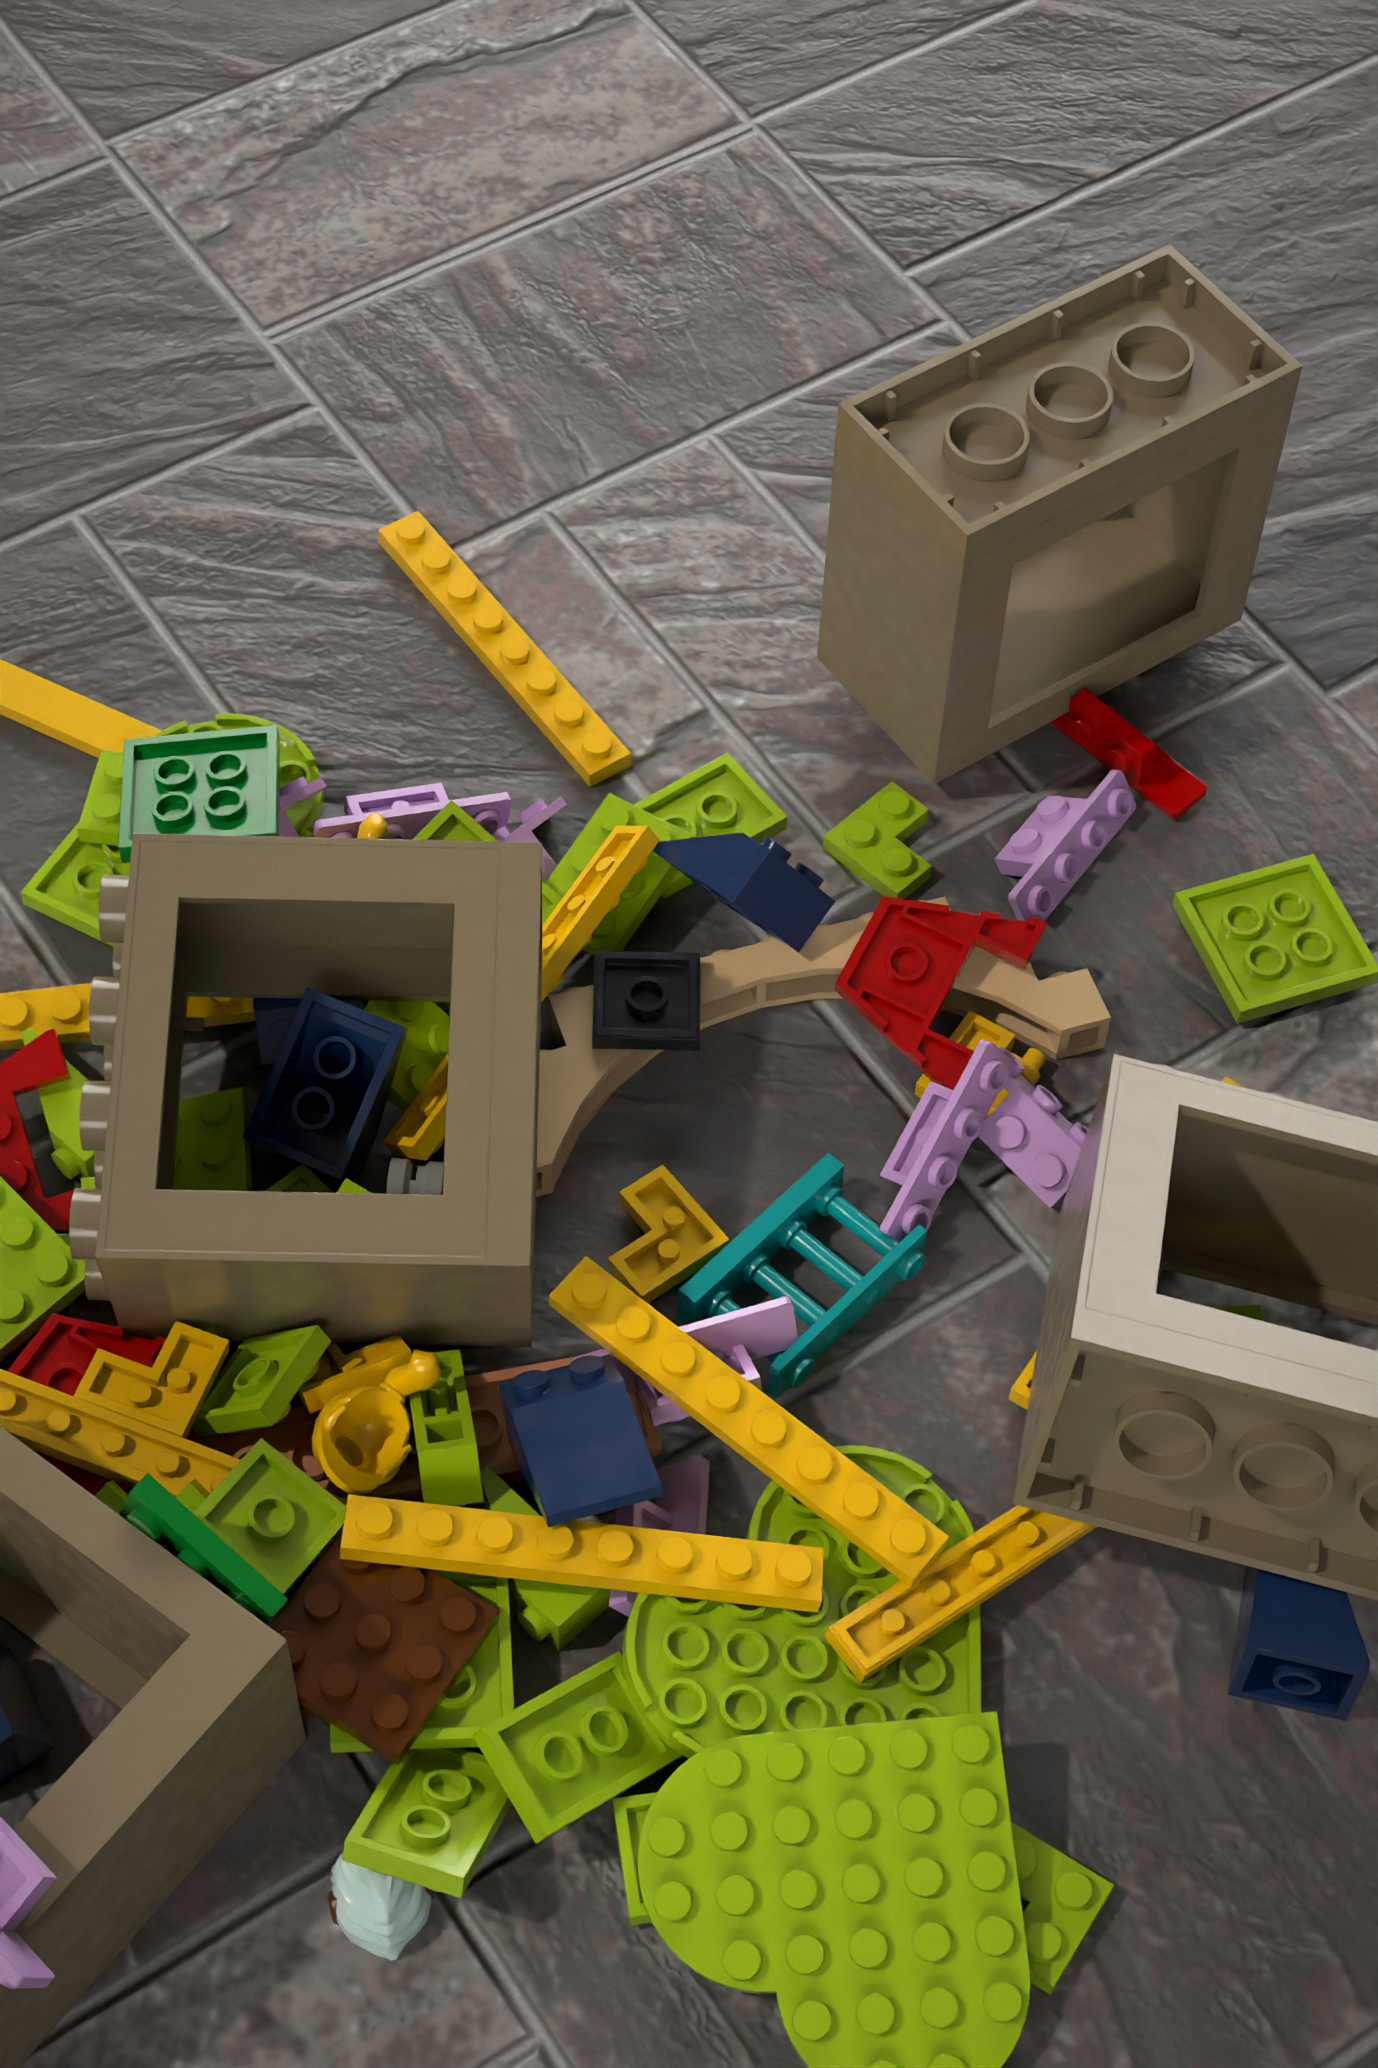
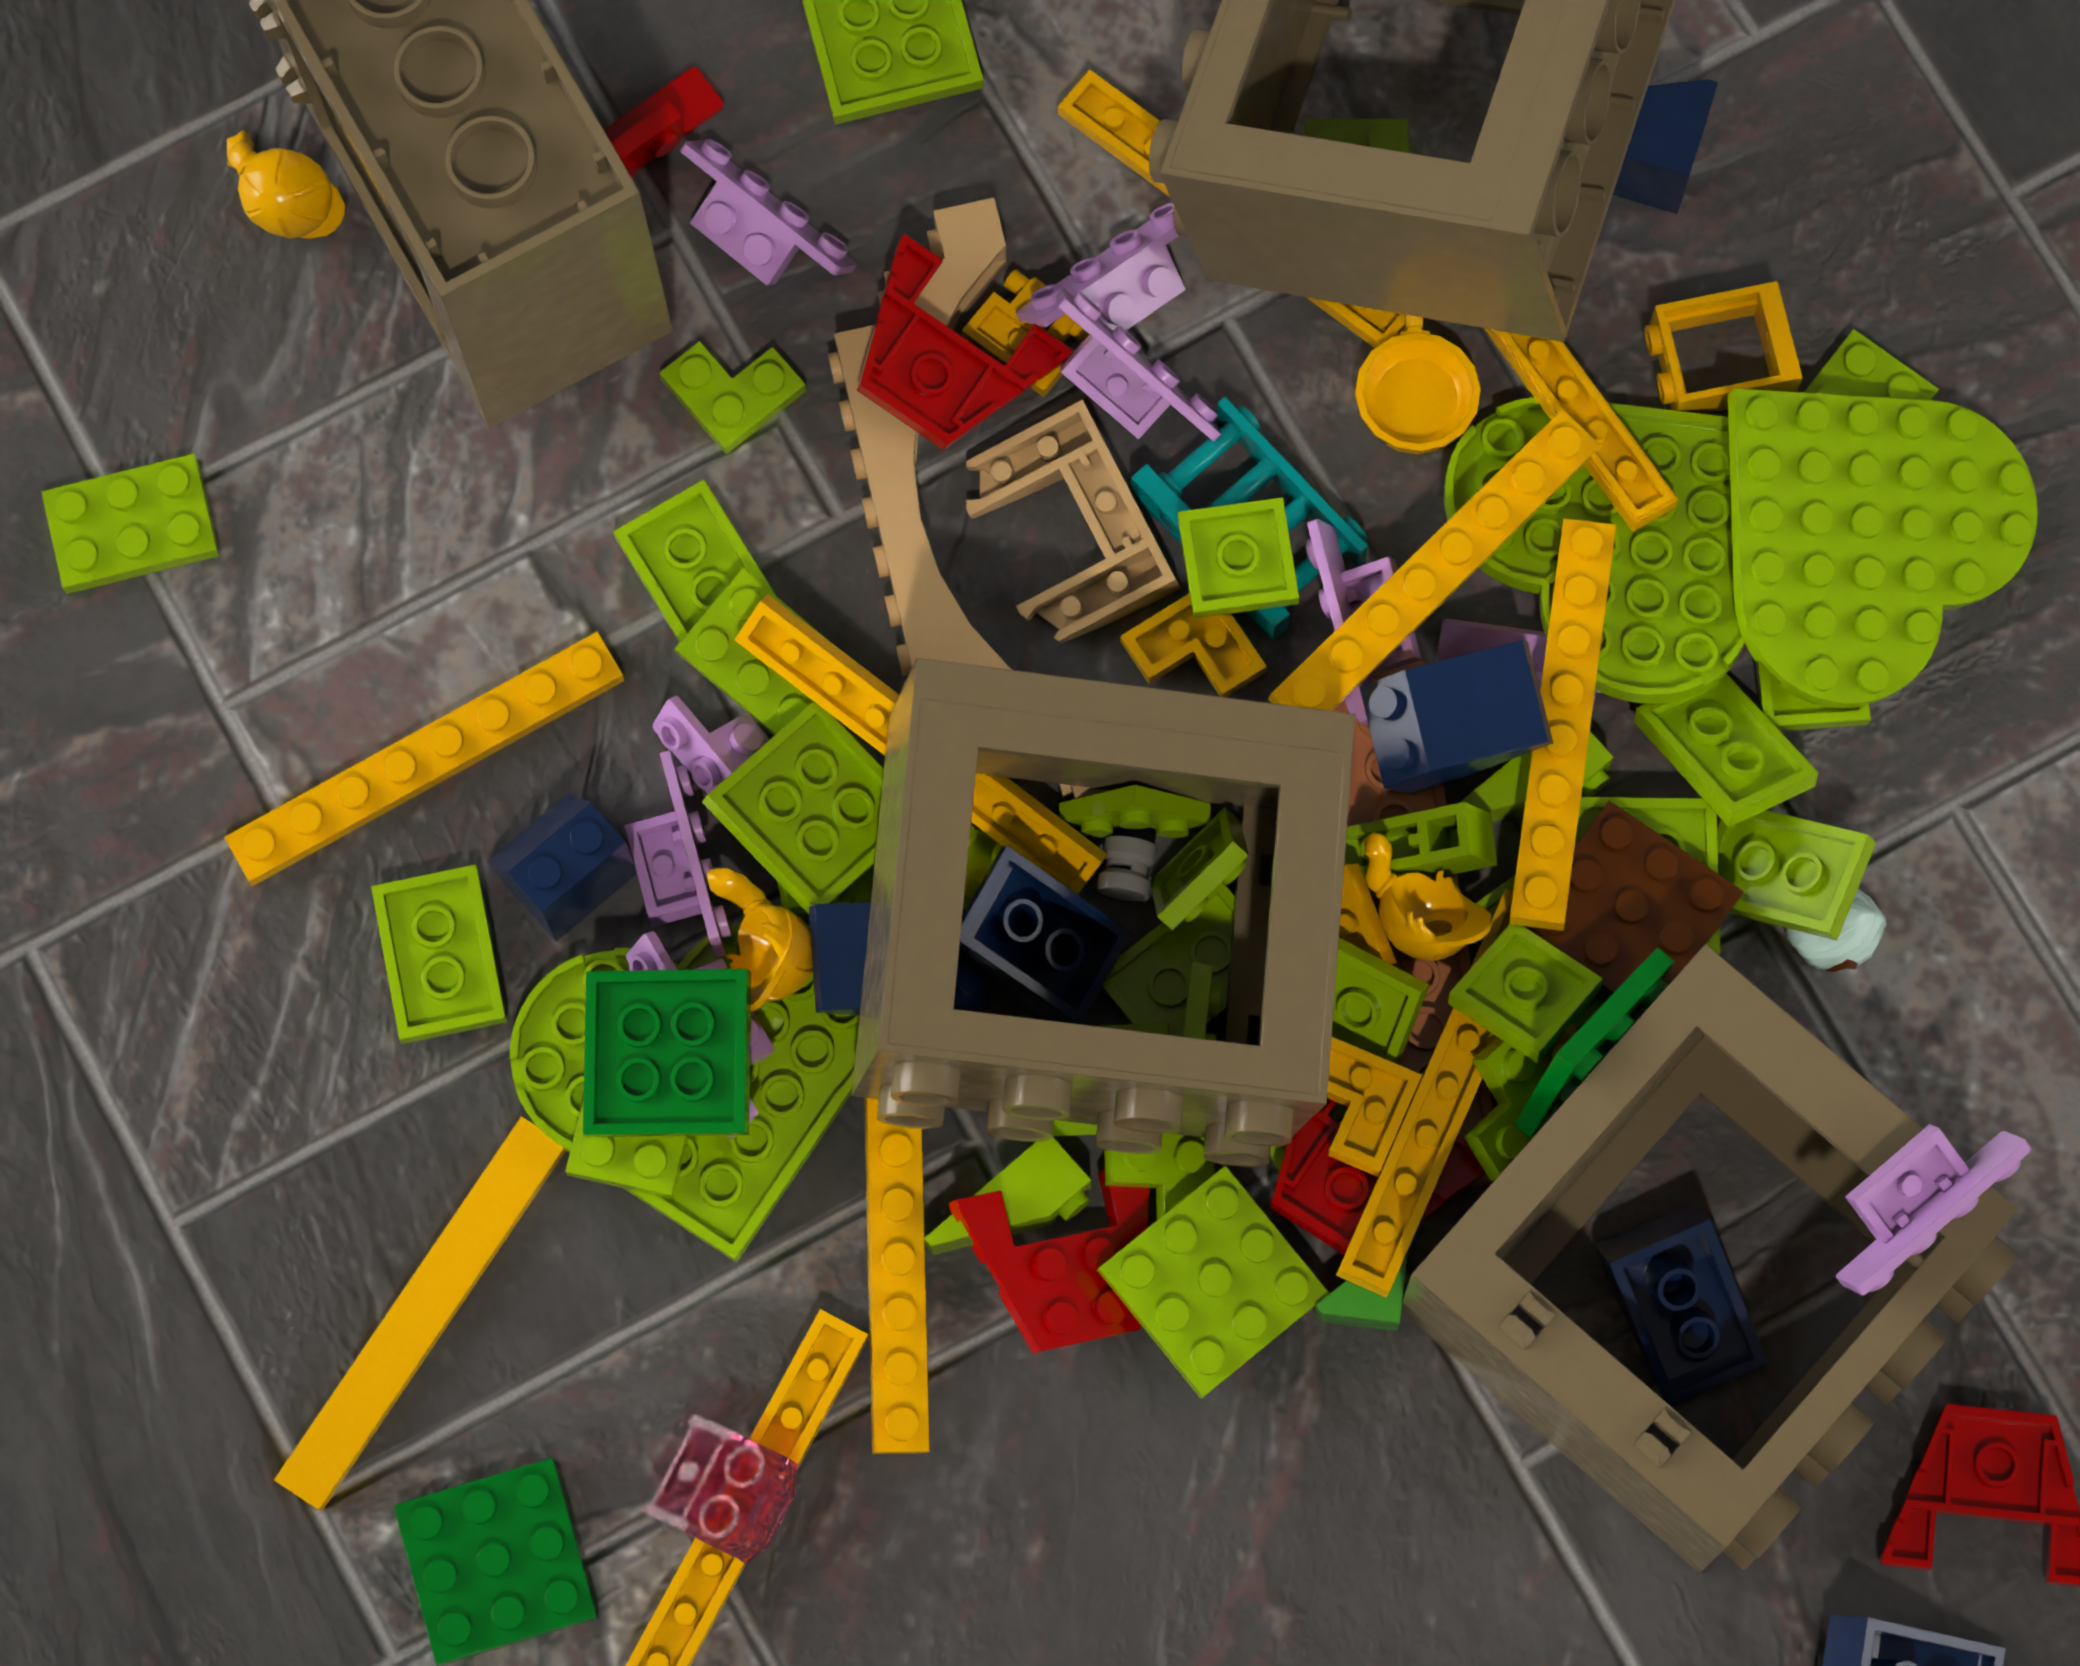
camera: 80 degrees left, 20 degrees up
(315, 663) = (439, 954): none -> lime plate
(390, 728) = (565, 864): none -> dark blue slope
(646, 1000) = (944, 621): black tile -> none
(701, 434) = (130, 523): none -> lime plate
(738, 1177) = (1074, 450): none -> tan wedge
(745, 1241) = (1238, 558): none -> lime plate
(753, 882) = (845, 504): dark blue slope -> none
(961, 1420) = (1417, 390): none -> yellow piece
(1081, 1792) = (1777, 343): none -> yellow window

